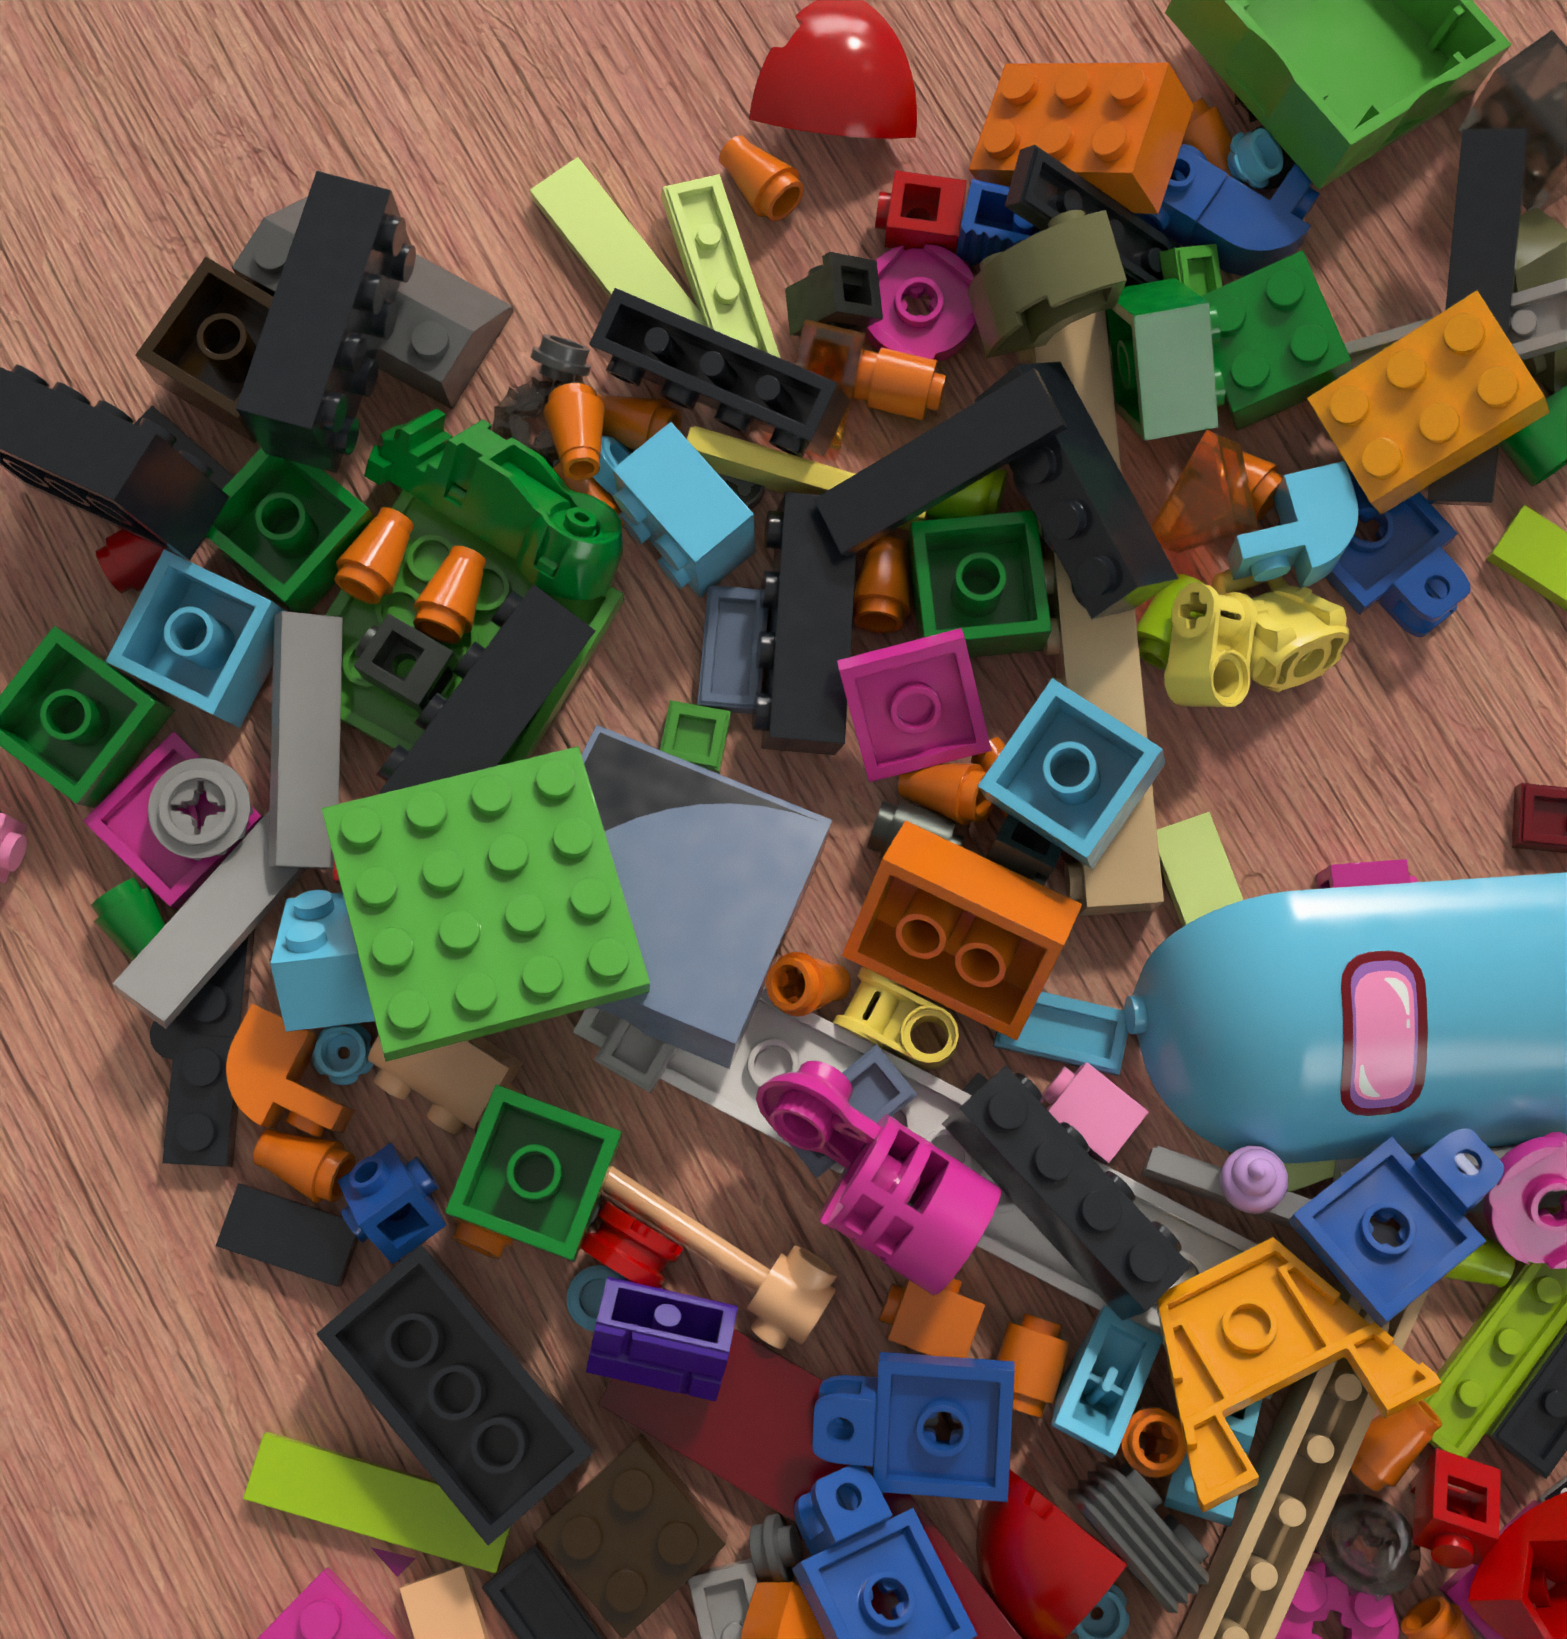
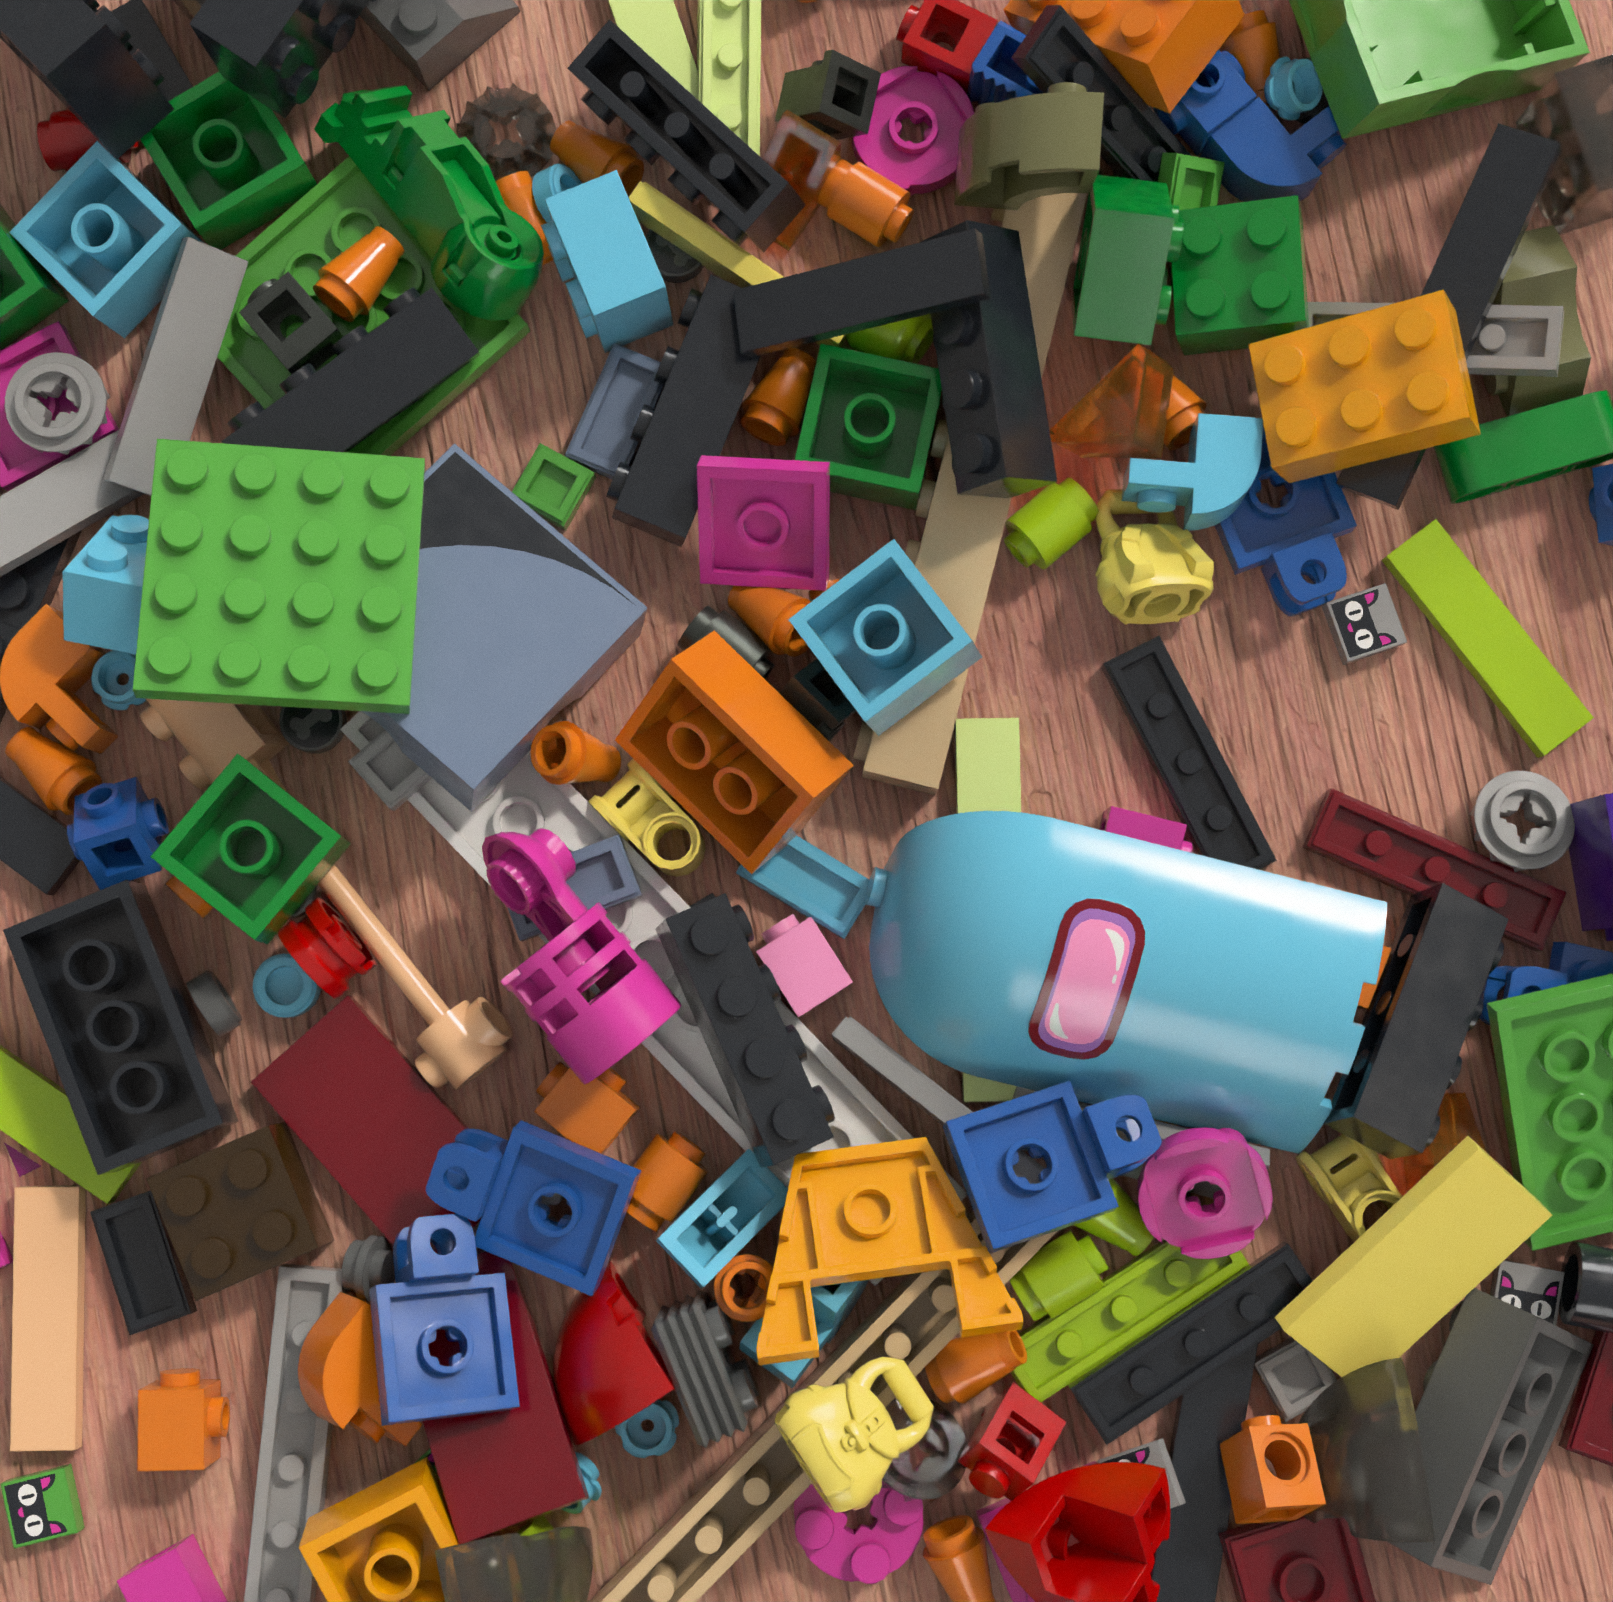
camera: 20 degrees right, 5 degrees up
(375, 557) = (299, 212): orange cone -> none
(538, 1338) = (214, 1003): none -> dark grey tile
(542, 1041) = (312, 728): none -> tile
(561, 358) = (545, 74): dark grey plate -> none
(576, 428) = (532, 146): orange cone -> none
(662, 1339) = (321, 1040): dark purple brick -> none
(1210, 653) = (1069, 563): light yellow piece -> none
(1254, 1179) = (925, 1077): lavender plate -> none
(1307, 1553) = (847, 1434): none -> light yellow piece
(1374, 796) = (1186, 756): none -> black tile
(1445, 1327) = (1059, 1276): none -> lime brick
(1493, 622) = (1364, 624): none -> tile

